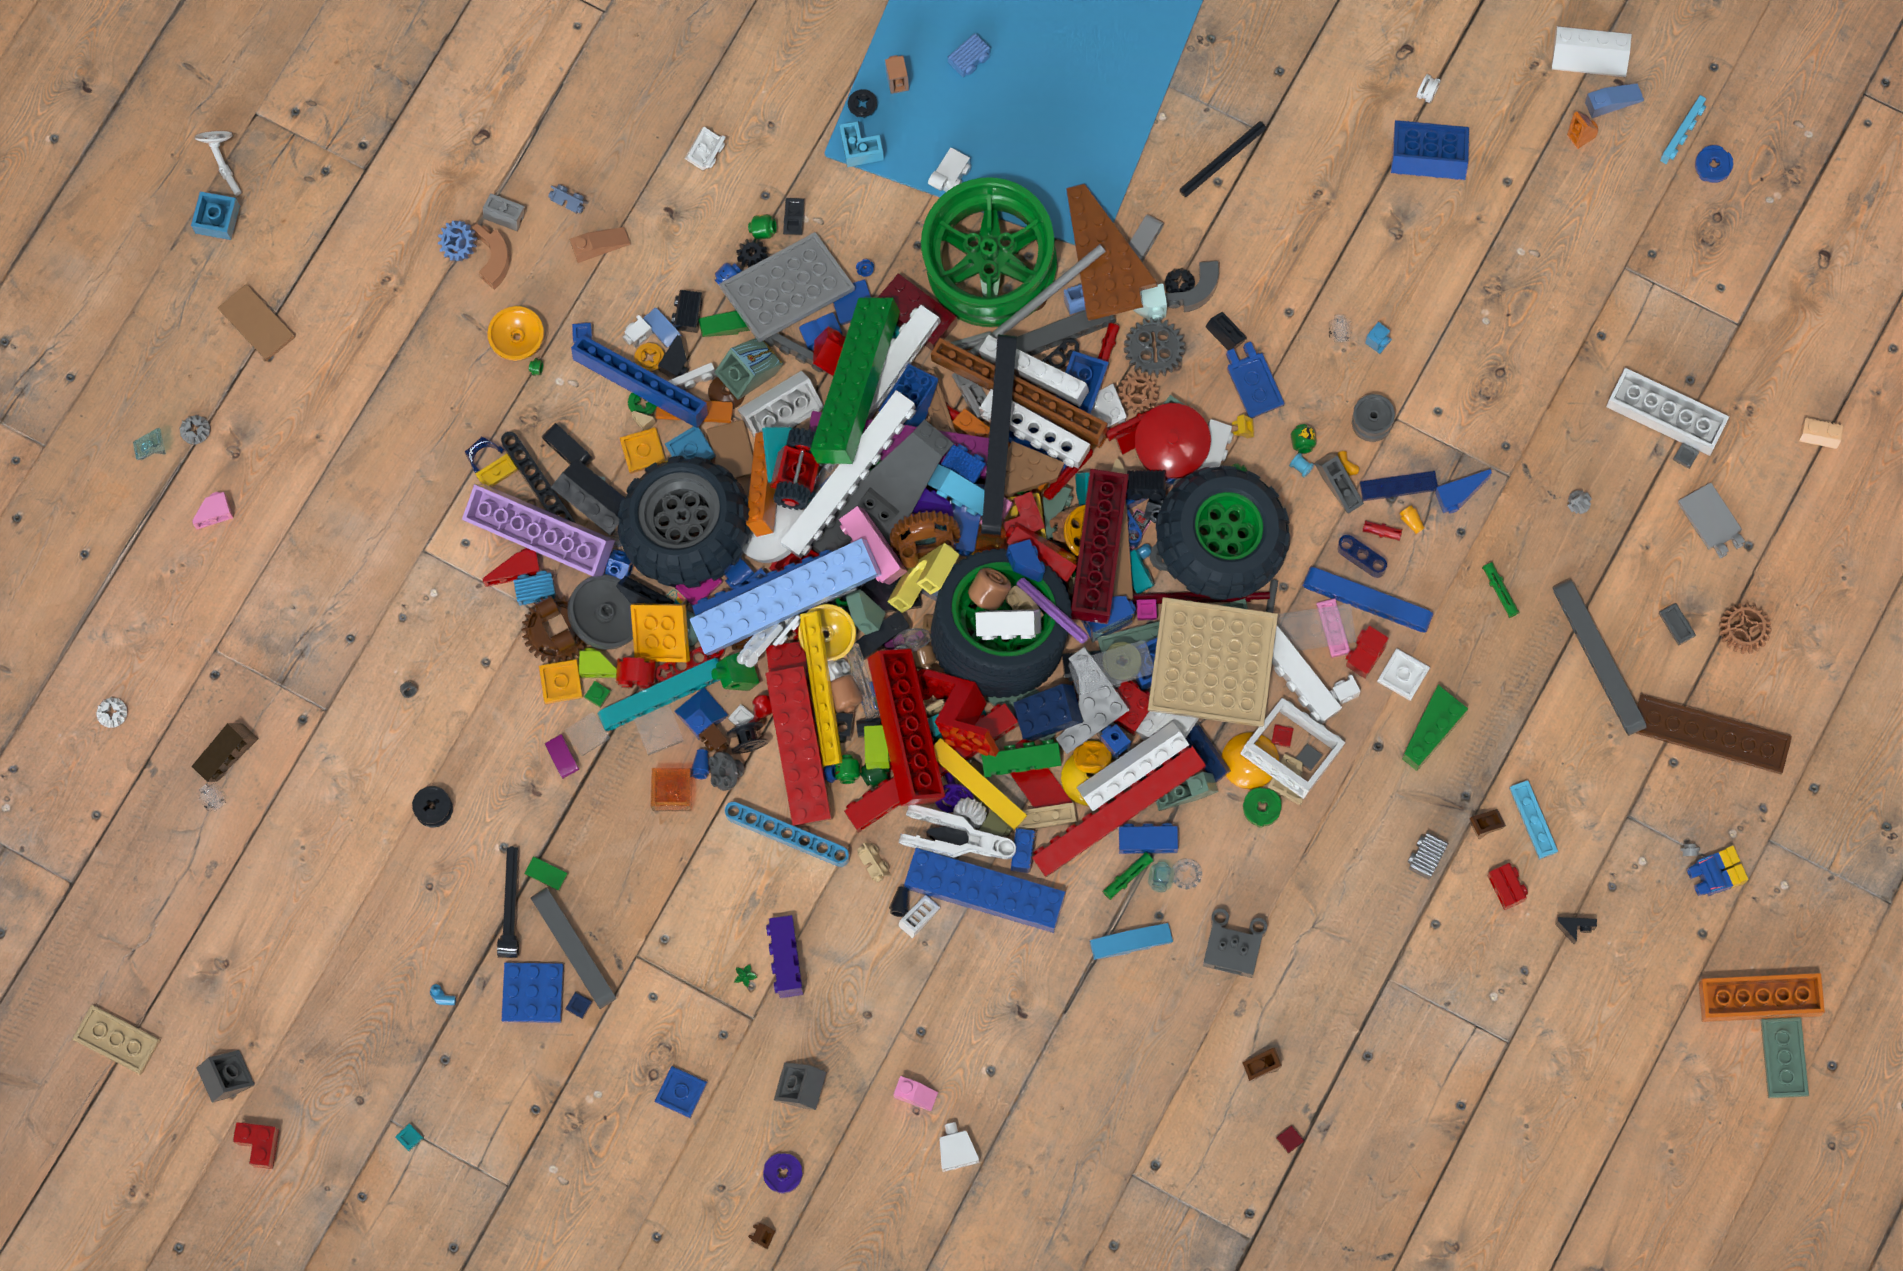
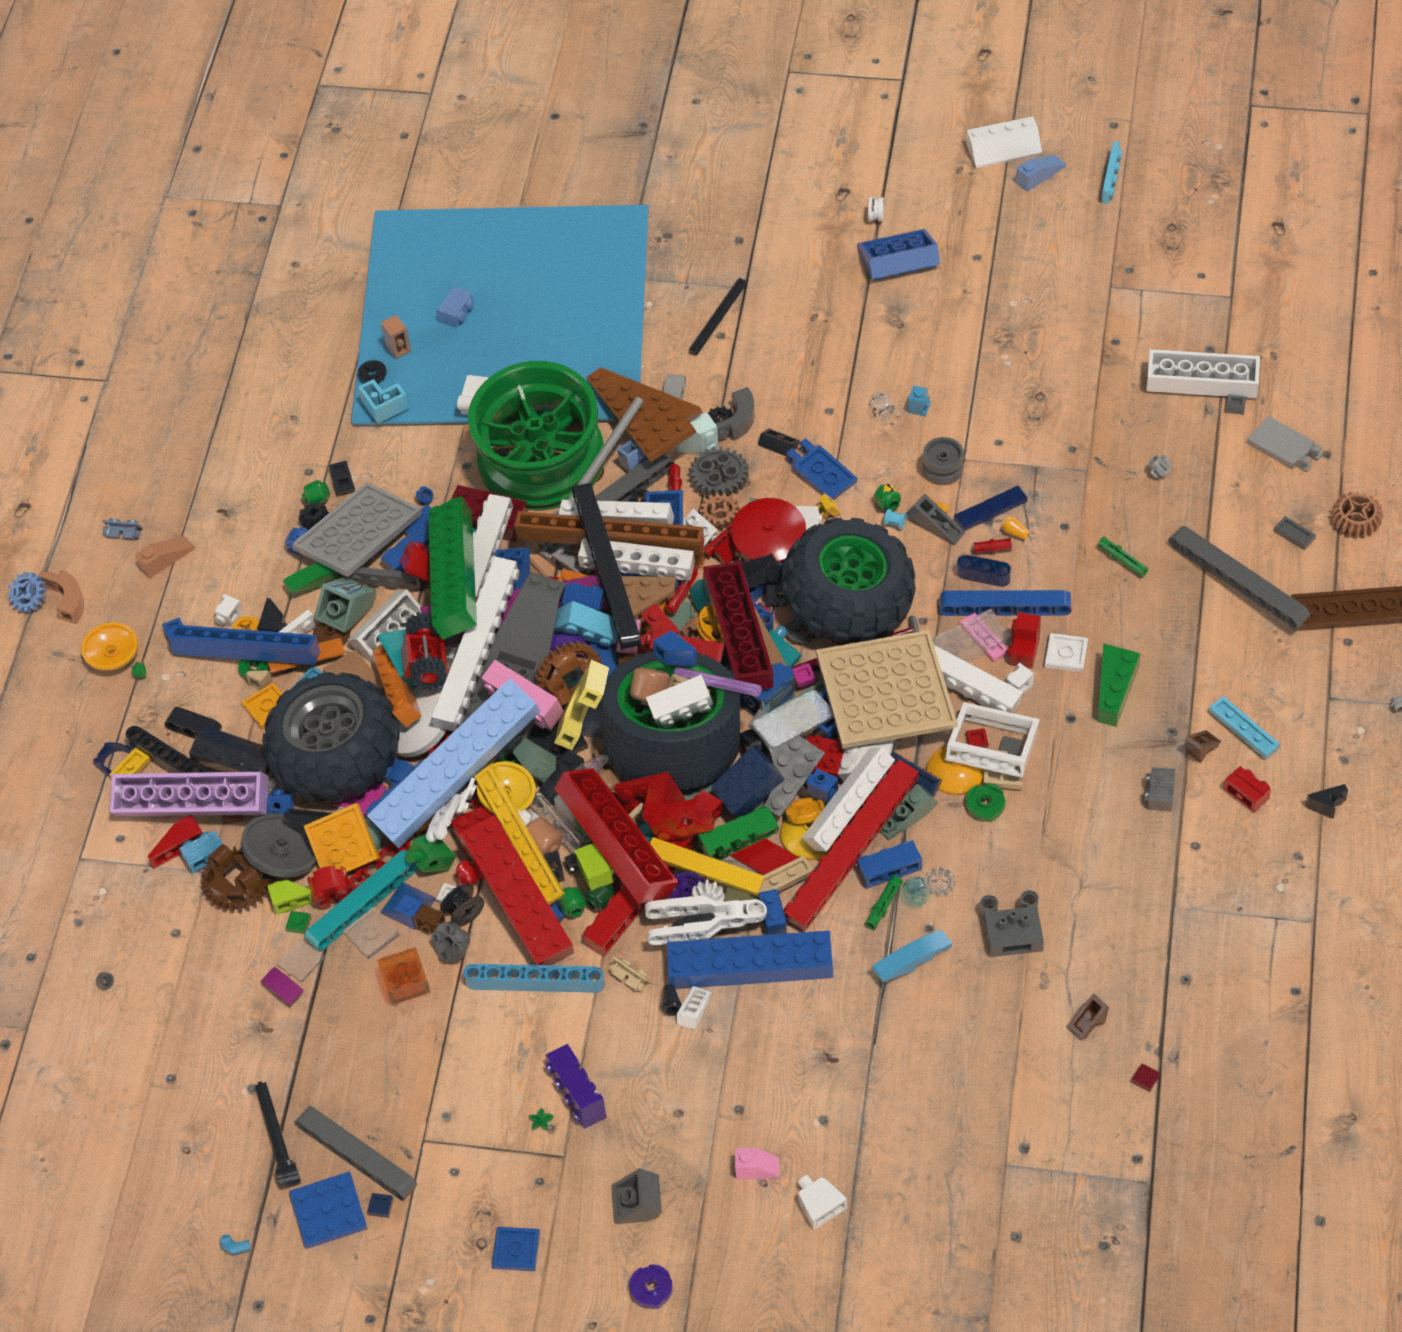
camera: 20 degrees left, 20 degrees down
(437, 797) = (165, 1074): black piece -> none
(503, 212) = (64, 557): light grey hinge -> none
(546, 873) = (303, 1096): green tile -> none
(560, 681) = (257, 922): light orange plate -> none
(661, 327) = (249, 600): medium blue slope -> none
(688, 311) = (270, 579): black brick -> none
(700, 765) = (424, 947): blue cone -> none
(705, 148) = (238, 451): white bracket -> none
(1457, 493) = (1046, 495): blue slope -> none
(1582, 129) = (1024, 194): orange slope -> none
(1707, 172) = (1146, 196): blue plate -> none
(1821, 433) = (1345, 348): light nougat brick -> none

